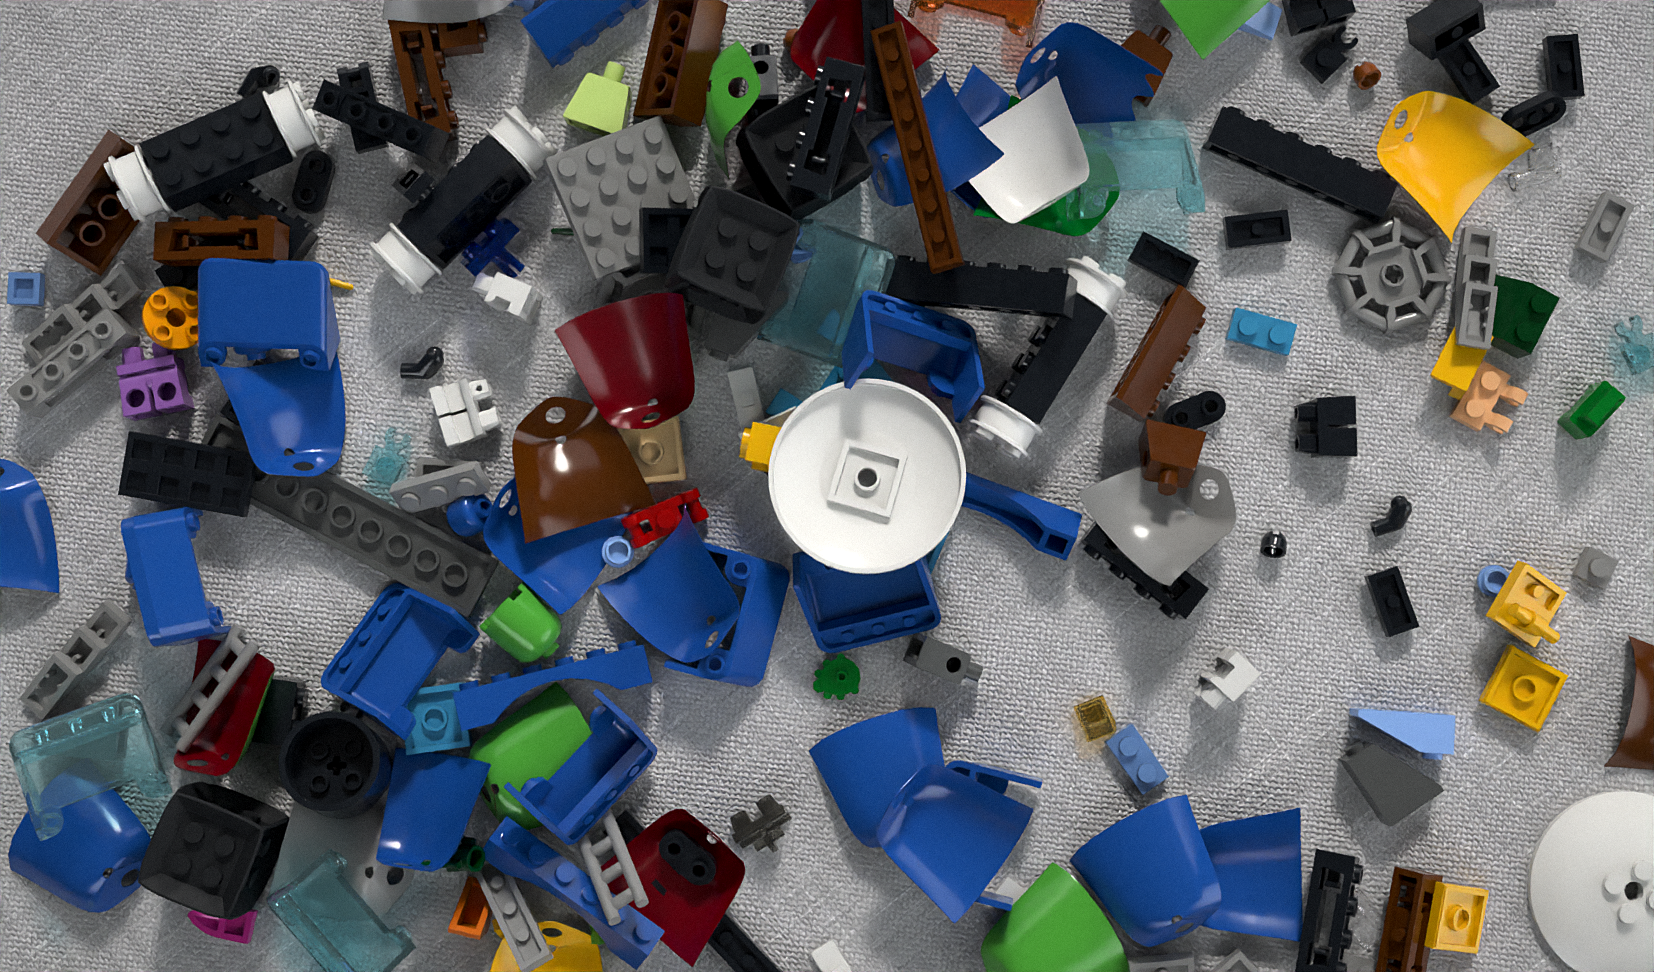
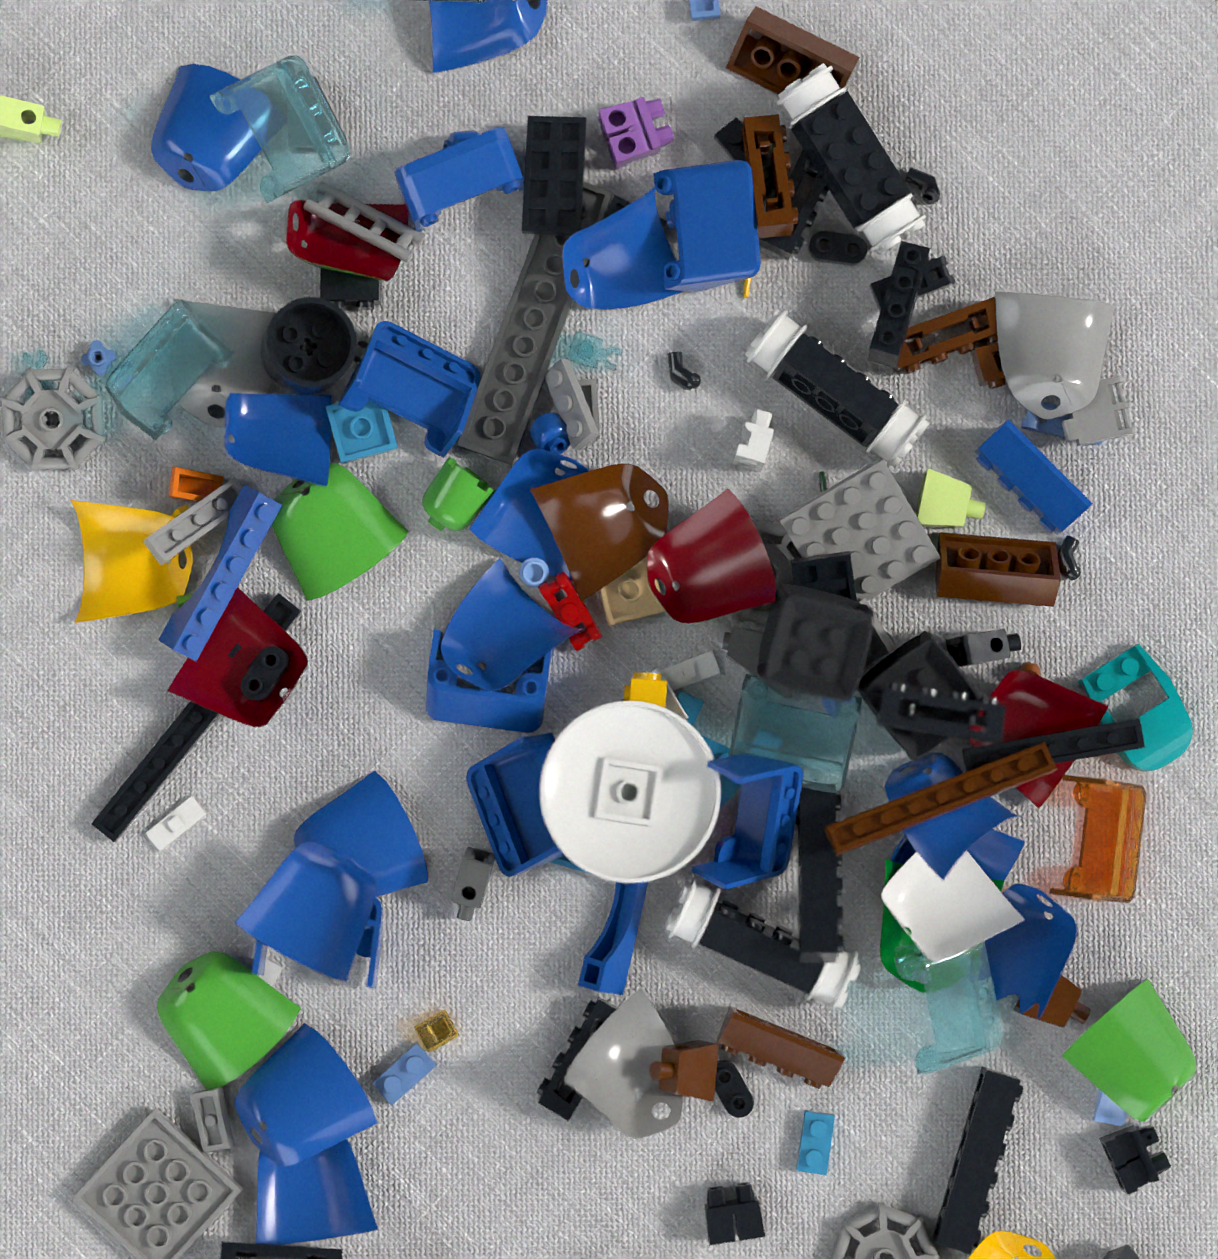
camera: 75 degrees right, 0 degrees up
(73, 363) = (641, 57): light grey brick -> none
(76, 659) = (374, 97): light grey slope -> none
(112, 293) = (686, 59): light grey slope -> none
(172, 317) = (694, 141): light orange plate -> none
(213, 850) = (220, 249): black piece -> none
(235, 930) = (156, 265): dark pink plate -> none
(414, 184) = (845, 342): black plate -> none
(461, 413) = (656, 410): white hips -> none
(466, 858) = (239, 475): dark green plant -> none
(486, 703) = (381, 472): blue arch -> none
(493, 249) = (796, 421): clear blue plate -> none
(592, 775) = (328, 577): blue windscreen -> none
(623, 866) = (251, 618): light grey bar -> none
(723, 109) = (947, 615): bright green piece -> none
(748, 832) = (294, 726): clear smoke hips -> none
(837, 678) = (444, 788): green piece -> none
(1163, 260) = (869, 1042): black plate -> none
(1228, 681) = (485, 1149): white hips -> none
(1256, 229) = (910, 1127): black plate -> none
(1273, 545) = (617, 1178): black hinge -> none
(1327, 56) = (1083, 1173): black plate -> none
(1366, 75) = (1070, 1213): dark orange hinge -> none

